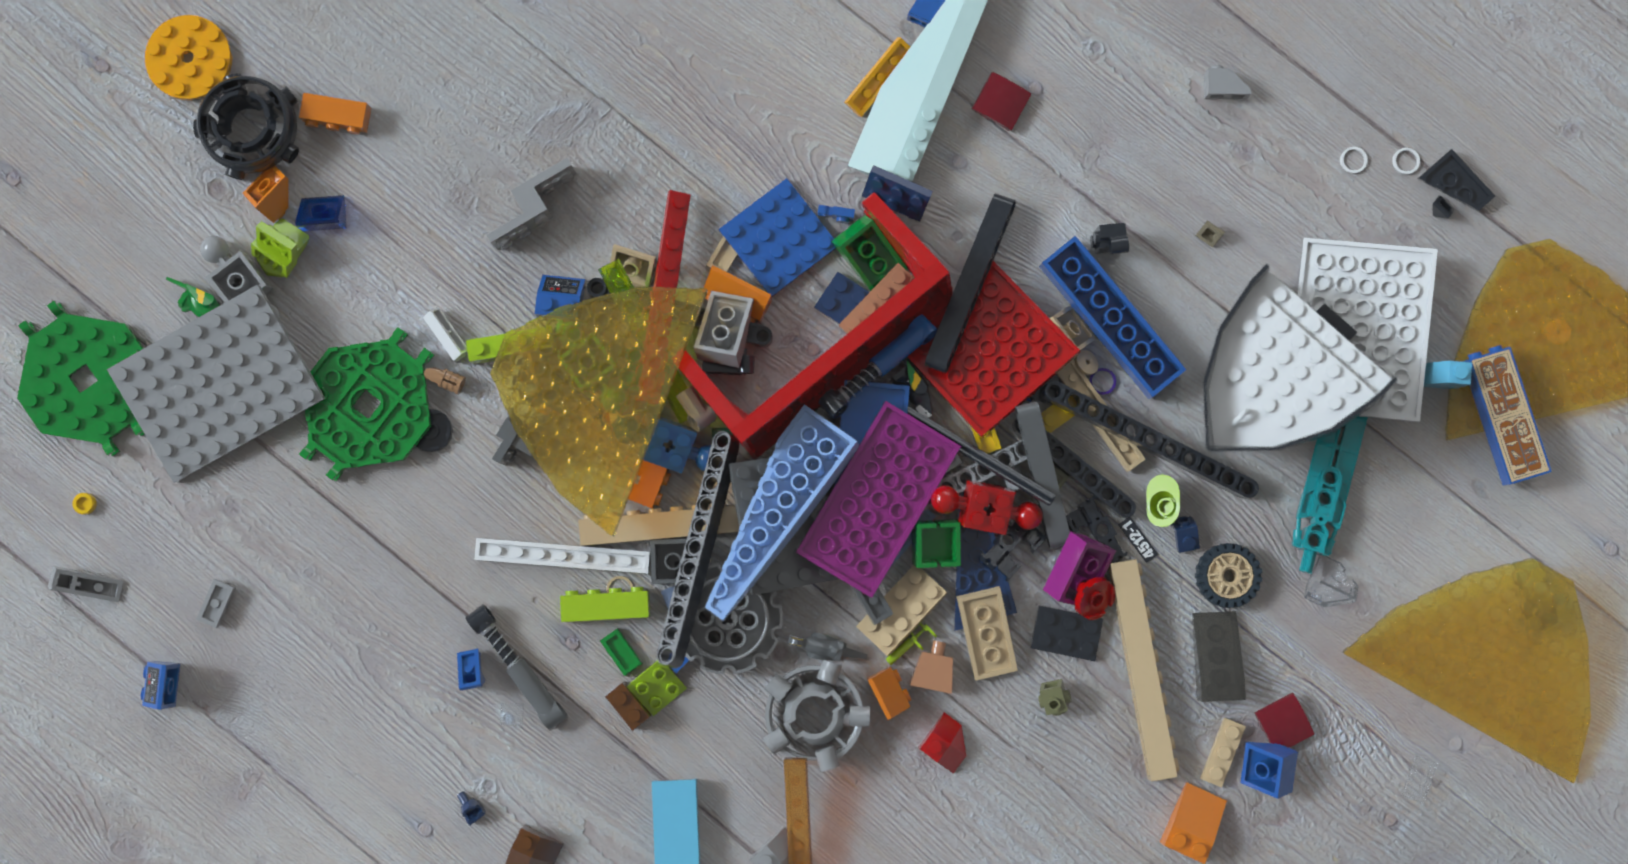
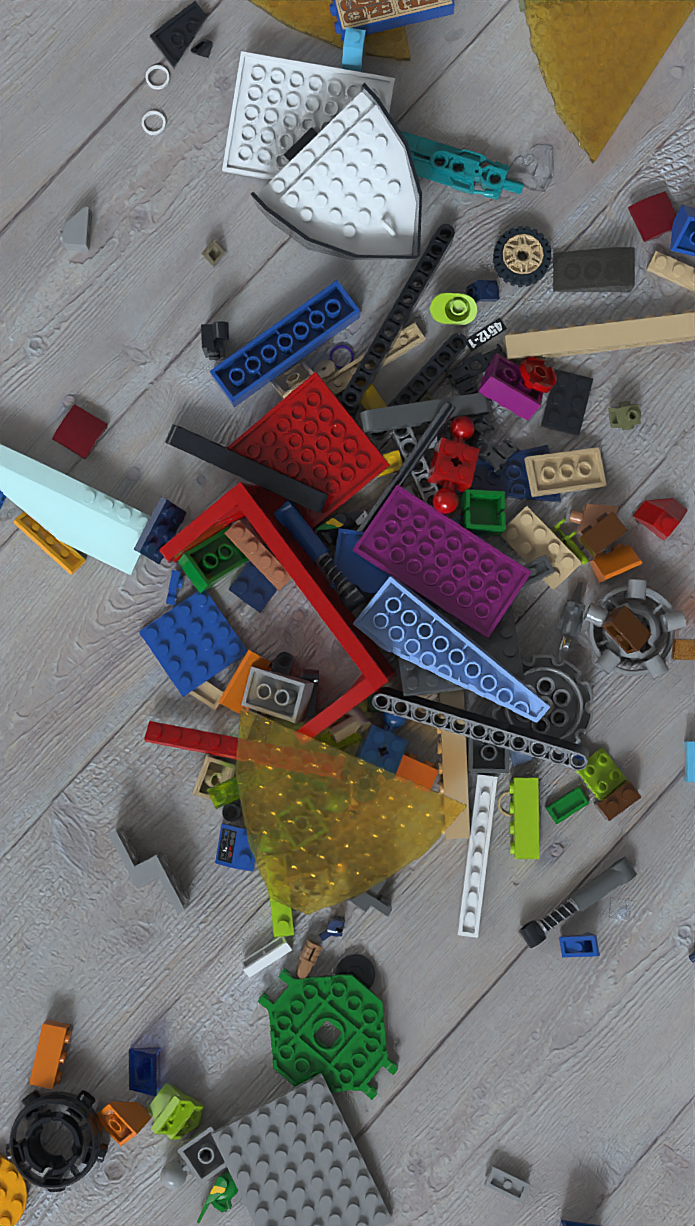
camera: 85 degrees left, 0 degrees up
(478, 403) = (332, 930): none -> dark blue piece
(813, 704) = (626, 629): none -> reddish brown brick
(919, 675) = (602, 534): none -> reddish brown brick

